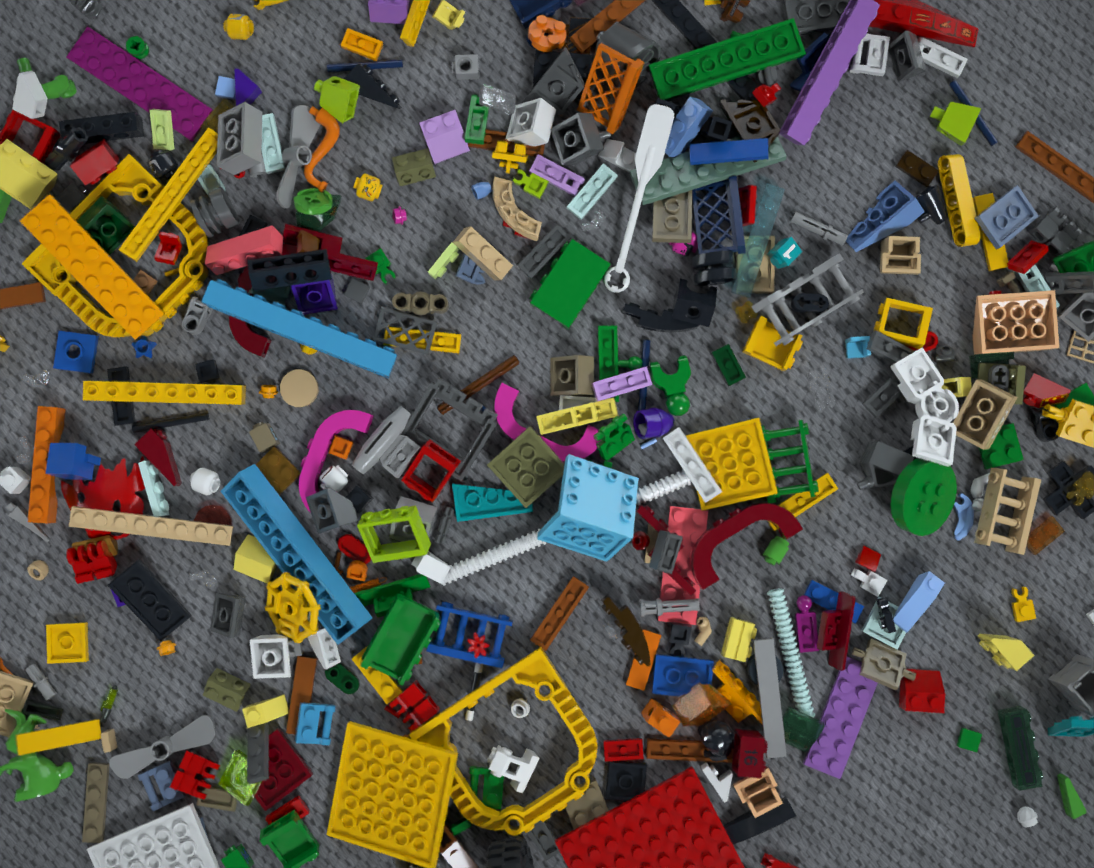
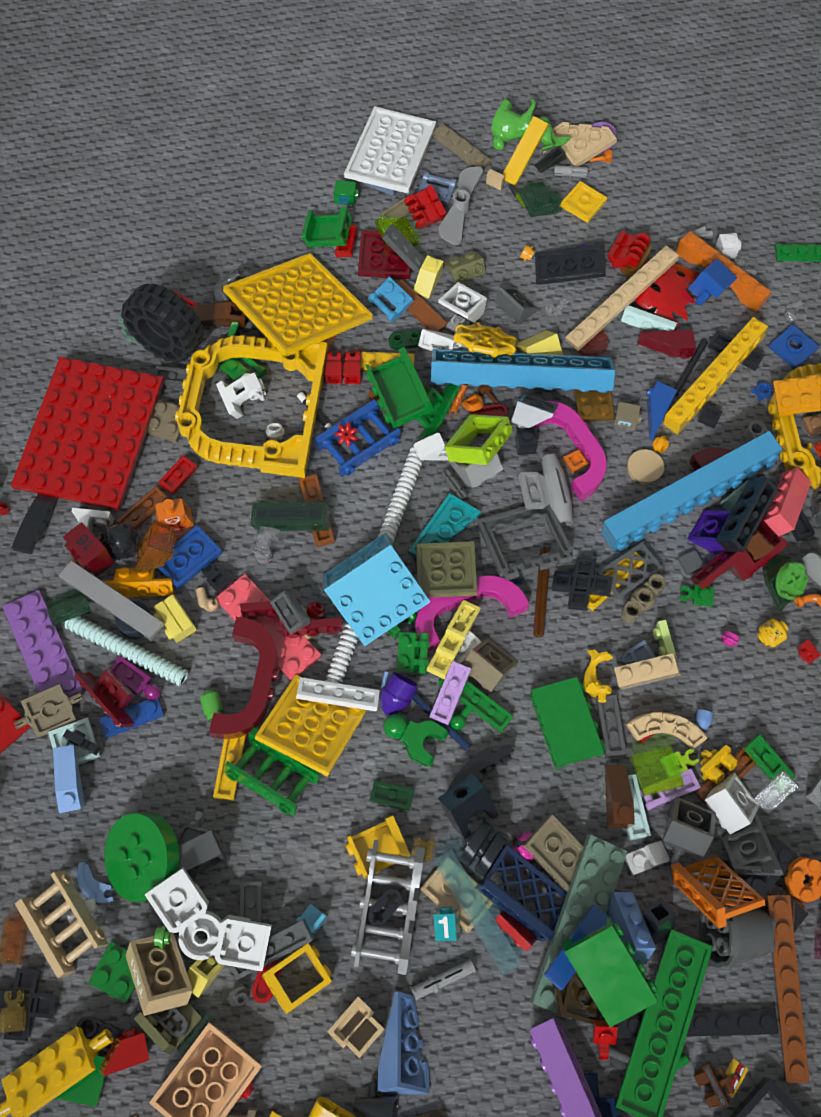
camera: 130 degrees right, 20 degrees down
(41, 567) = (651, 222): tan piece -> none
(97, 682) = (540, 199): none -> clear green slope
(205, 481) = (626, 356): white head -> none
(232, 419) = (657, 406): none -> blue slope
(334, 478) = (555, 436): white head -> none
(362, 151) = (808, 652): none -> red plate
(413, 167) = (764, 681): olive bracket -> none
(440, 456) = (507, 514): red window -> none
(444, 136) = (775, 723): lavender slope -> none
(448, 357) = (582, 583): none -> black plate
(524, 290) = (590, 682): none -> yellow animal
(552, 192) = (657, 771): none -> clear neon green tile
(584, 625) = (291, 516): none -> clear green brick
(597, 204) = (618, 797): none -> reddish brown slope
(625, 780) = (155, 460): black tile -> none
(633, 635) = (252, 541): dark brown slope -> none
(639, 673) = (226, 541): orange tile -> none
(648, 161) = (623, 864): white piece -> none
(672, 606) = (253, 579): light grey pin -> none
(732, 113) = (611, 973): none -> green panel
(759, 793) = (49, 539): light nougat plate -> none
(868, 558) = (136, 773): red slope -> none
(870, 582) = (116, 759): white plate -> none
(963, 431) = (162, 937): none -> bright green plate
(978, 486) = (104, 920): white arm -> none

